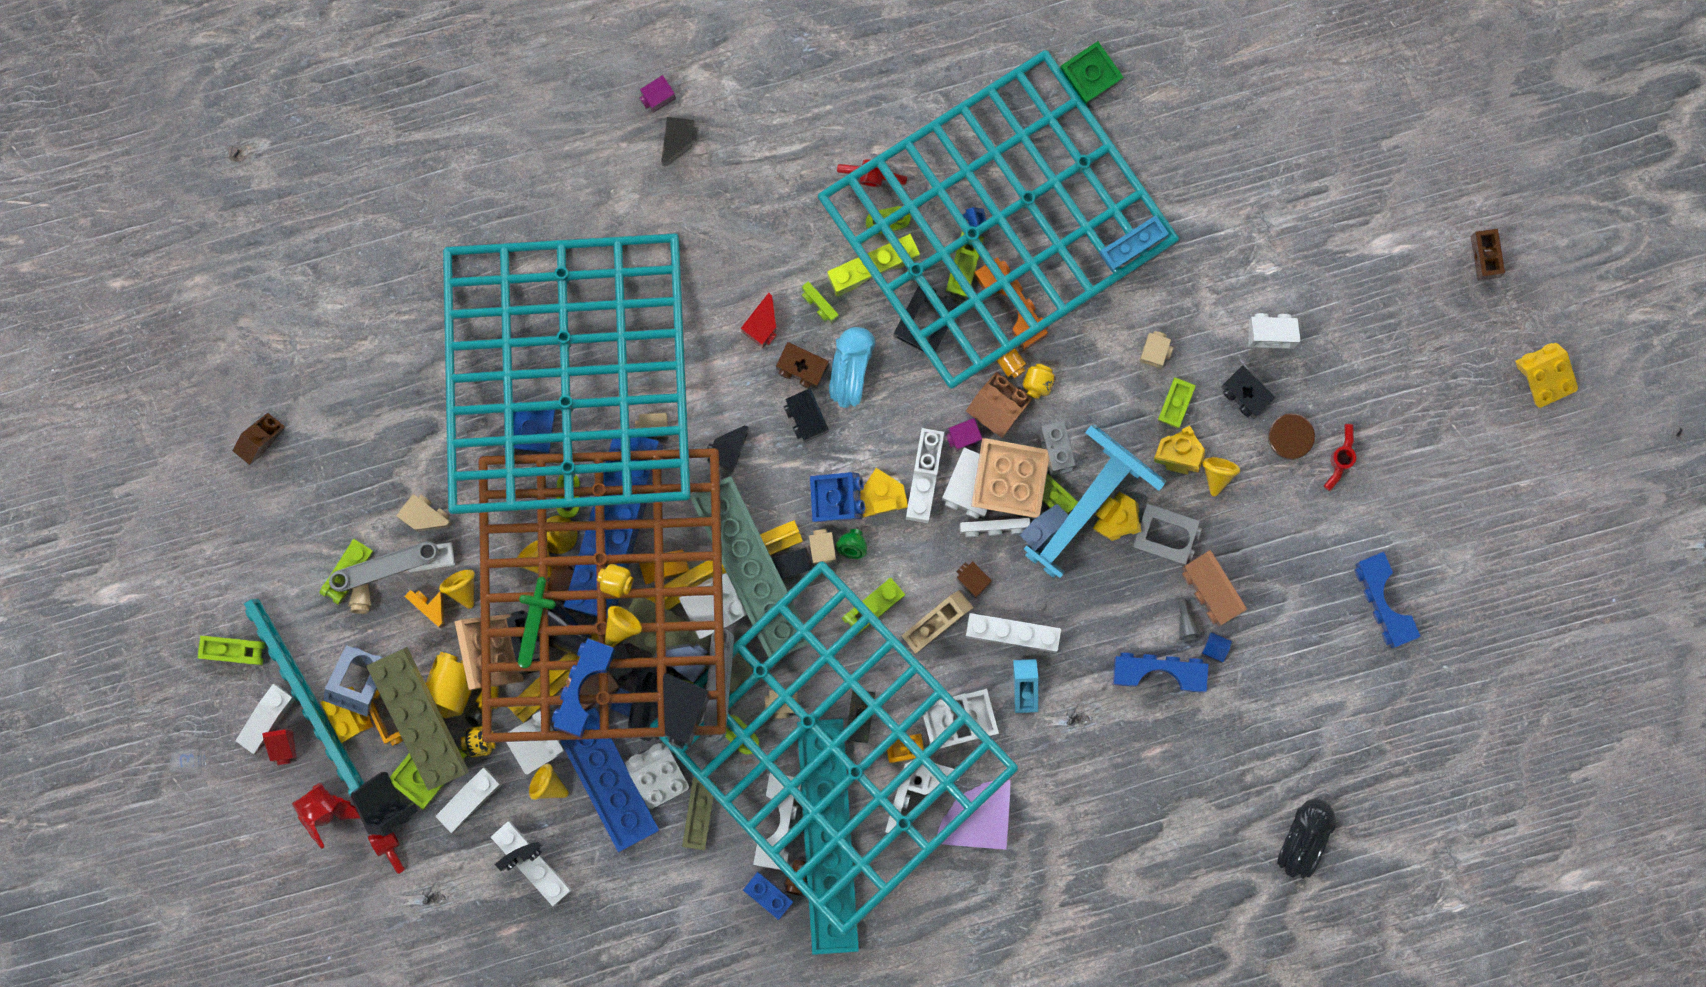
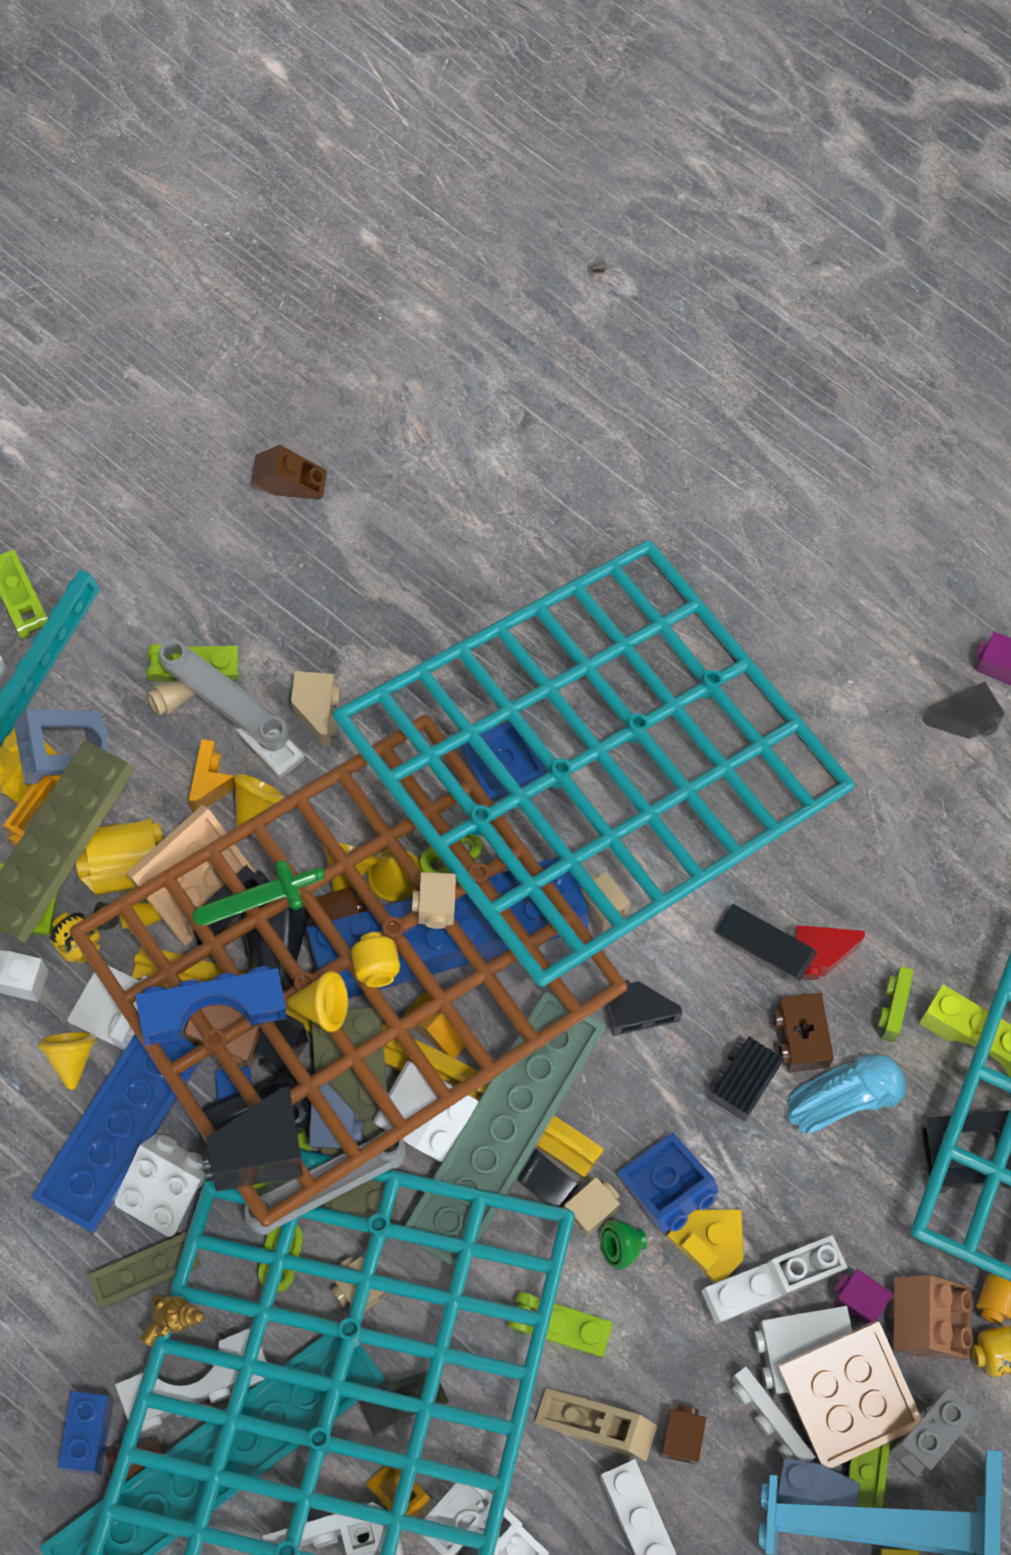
camera: 55 degrees right, 15 degrees down
(601, 525) = (435, 899): none -> tan brick
(738, 351) = (766, 942): none -> black tile
(738, 812) = (170, 1315): none -> pearl gold piece

